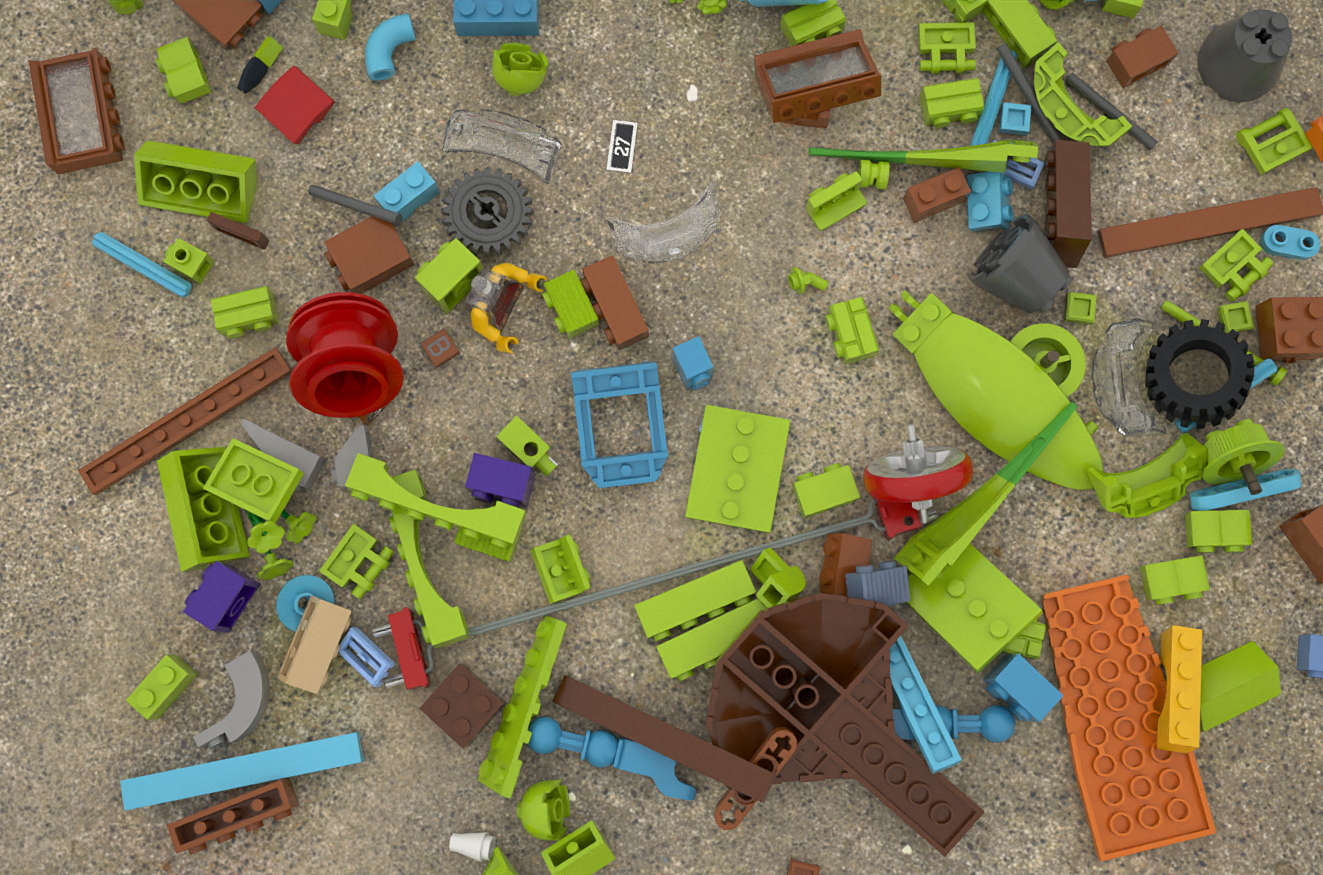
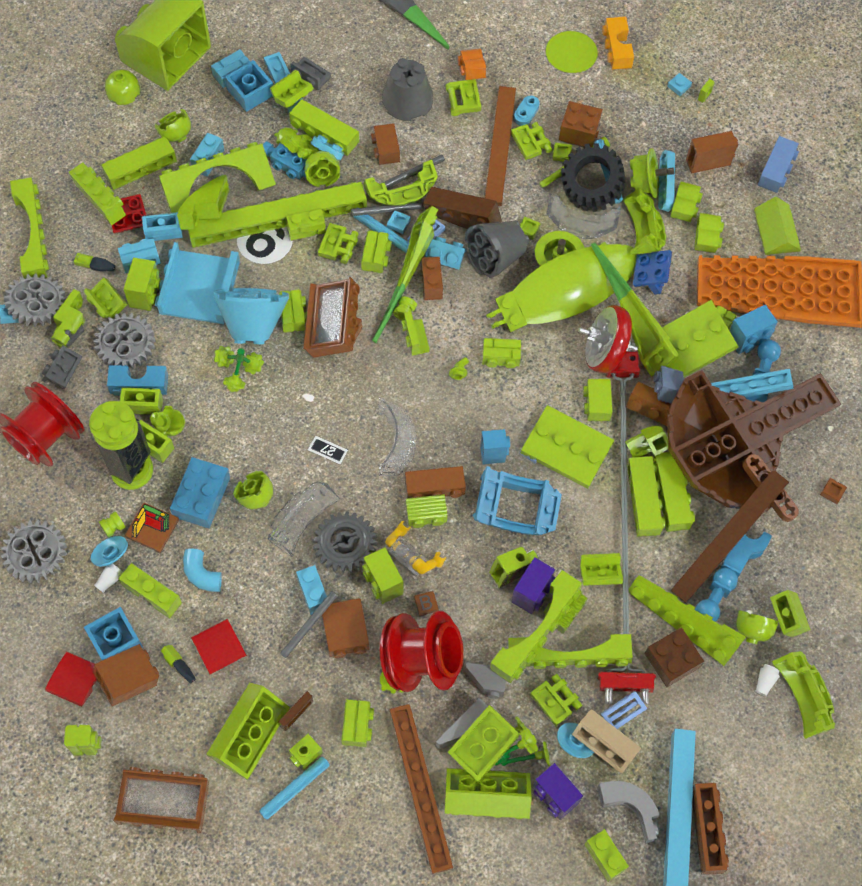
camera: 75 degrees left, 15 degrees down
(183, 70) = (162, 715): lime brick -> none
(1070, 509) = (652, 270): none -> blue bracket
(1181, 711) = (794, 254): yellow arch -> none

